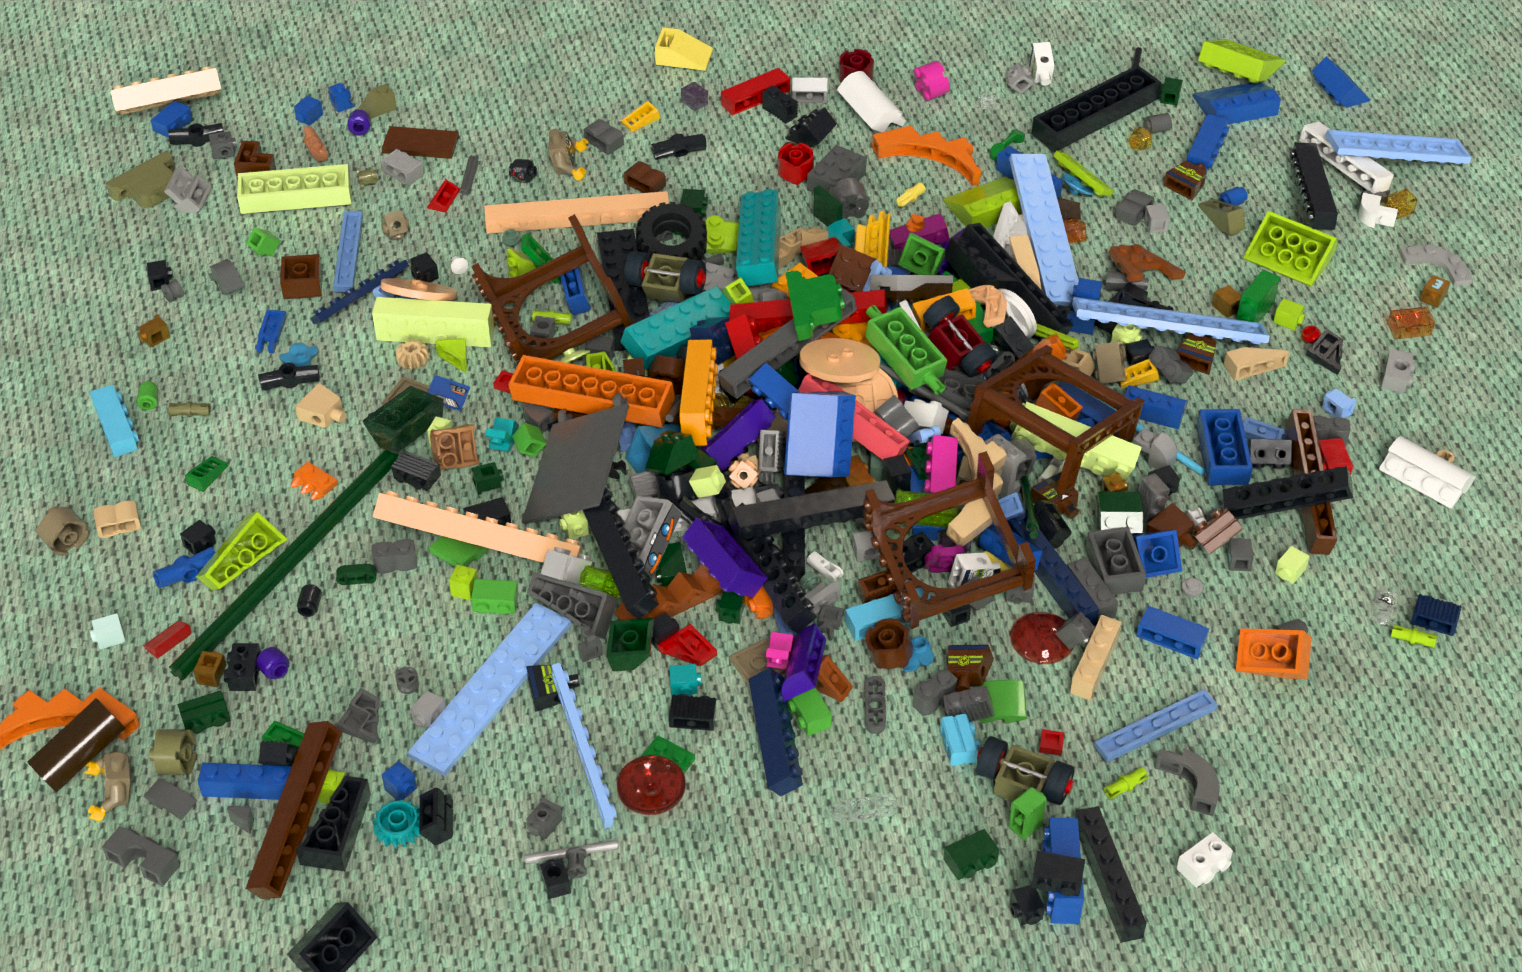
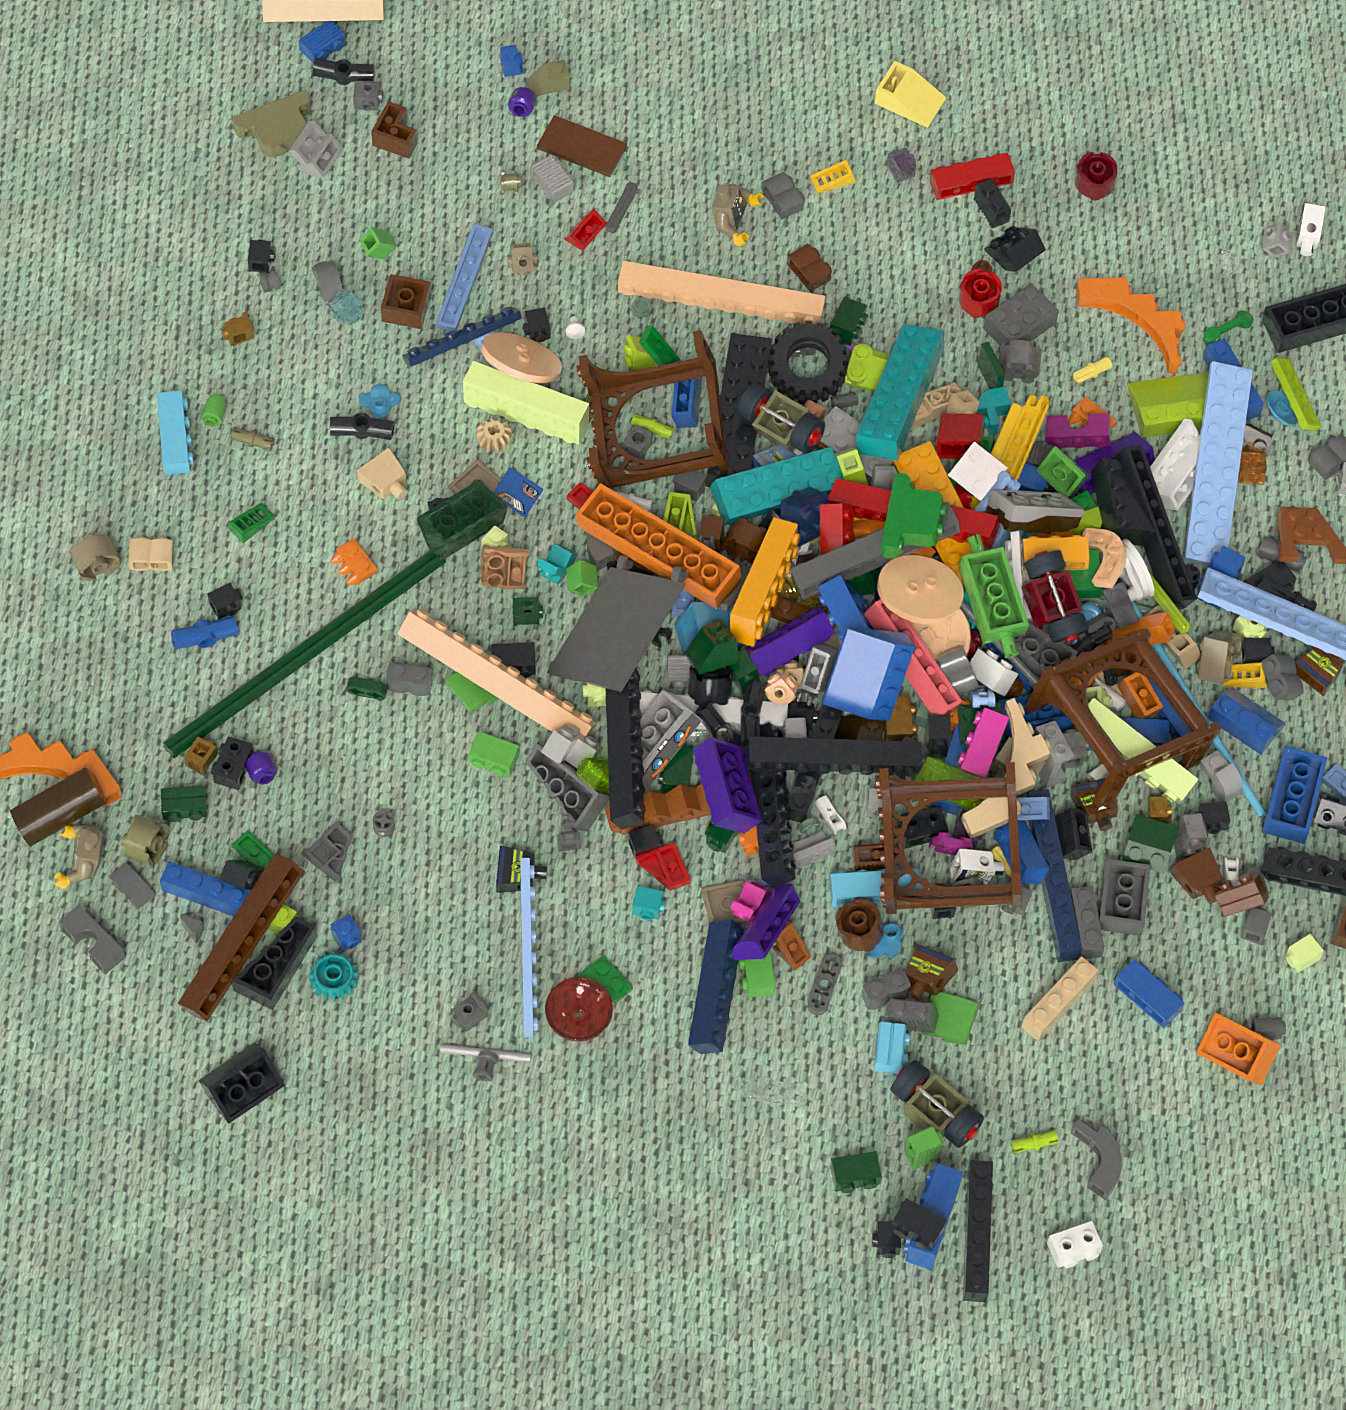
camera: 15 degrees right, 15 degrees up
(107, 631) = (114, 684): light aqua brick -> none
(168, 639) = (169, 708): red slope -> none
(241, 550) = (260, 632): lime wedge -> none
(248, 292) = (346, 307): none -> clear light blue brick
(271, 330) = (358, 360): blue hinge -> none
(294, 188) = (428, 179): yellowish green brick -> none
(308, 110) = (471, 69): blue brick -> none
(309, 600) = (313, 705): black brick -> none
(314, 144) = (466, 120): nougat hinge -> none
(416, 471) = (458, 582): black brick -> none
(427, 709) = (394, 864): light grey brick -> none
(436, 816) = (369, 981): black brick -> none
(453, 351) = (538, 443): lime slope -> none
(462, 581) = (467, 728): lime brick -> none
(489, 689) = (460, 855): light blue plate -> none
(522, 170) = (679, 219): black head -> none
(555, 886) = (461, 1086): black brick -> none
(572, 355) = (655, 488): yellowish green dish -> none
(629, 643) = (606, 849): dark green slope -> none
(679, 146) = (861, 231): black piece -> none
(692, 712) = (645, 941): black brick -> none
(707, 481) = (738, 692): yellowish green brick -> none
(809, 90) = (1033, 190): brick -> none
(830, 619) = (813, 877): dark grey plate -> none
(870, 102) = (1094, 229): white brick -> none
(931, 80) = (1173, 218): dark pink brick -> none
(1023, 255) = (1176, 501): tan slope -> none
(1031, 524) = (1049, 836): dark green bar -> none
(1036, 640) = (1017, 970): clear red dish -> none
(1051, 742) = (979, 1077): red plate -> none
(1075, 631) = (1049, 966): flat silver brick -> none
(1155, 725) = (1089, 1090): medium blue plate -> none
(1159, 552) = (1170, 898): blue slope -> none
(1192, 587) = (1192, 947): light grey plate -> none

